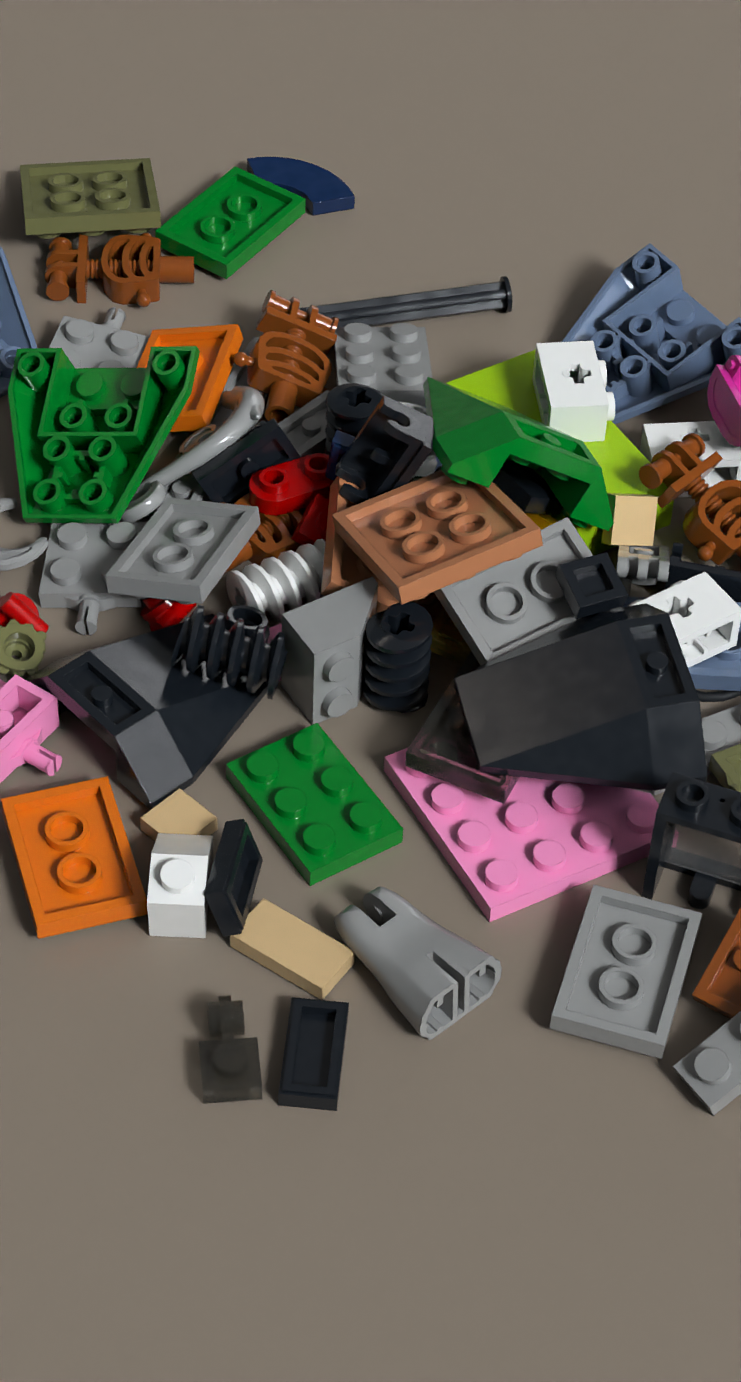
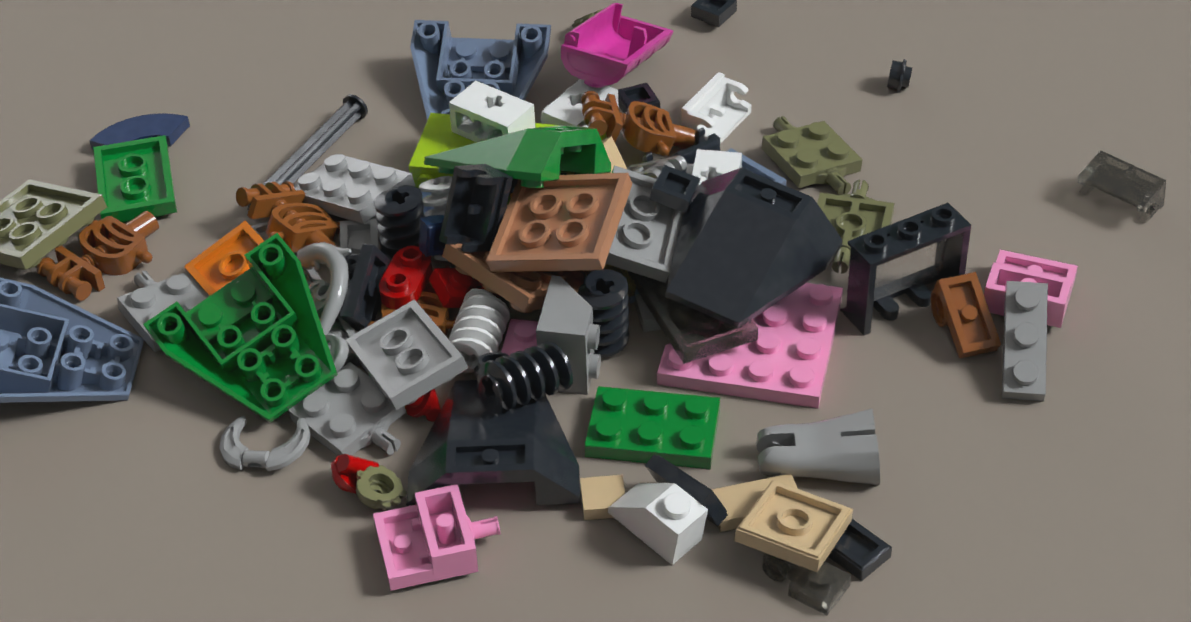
camera: 45 degrees left, 5 degrees down
(73, 857) = (581, 560): orange plate -> none
(270, 994) = (794, 525): none -> tan tile
(626, 971) = (920, 369): light grey plate -> none

